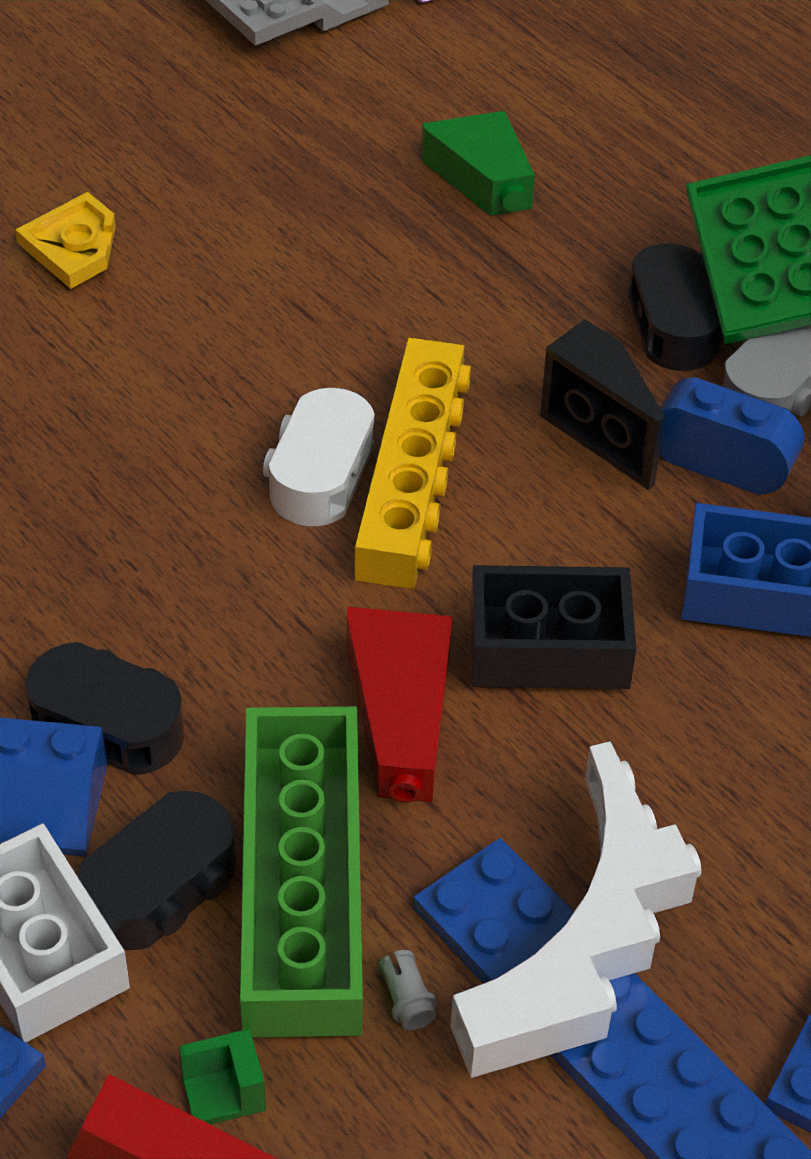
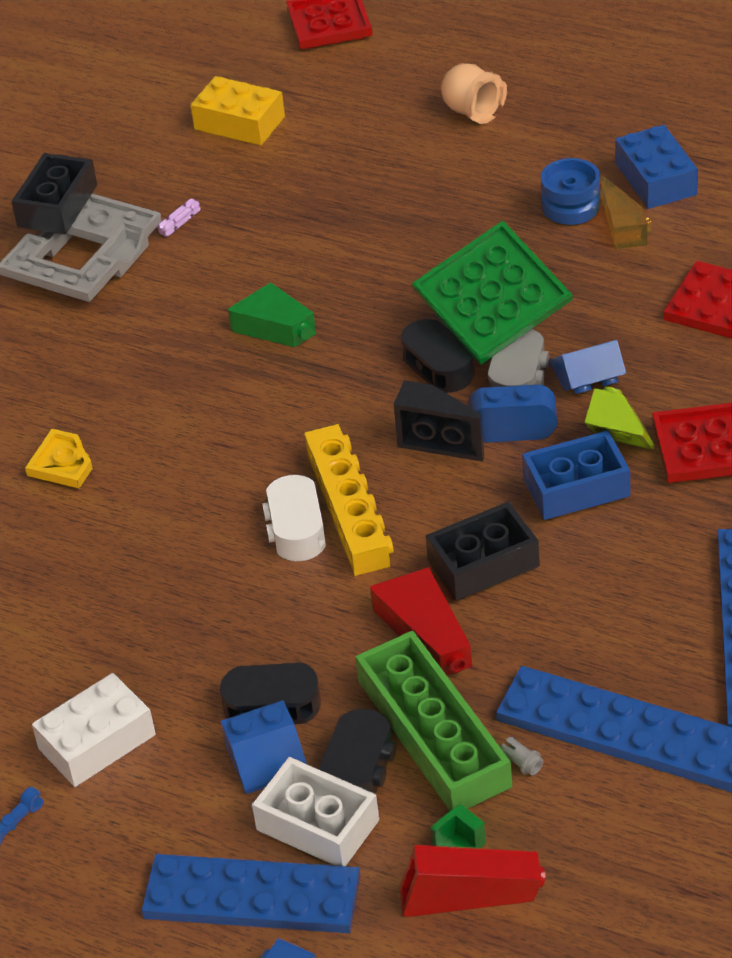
camera: 20 degrees left, 5 degrees down
(565, 990) = (605, 714): white arch -> none

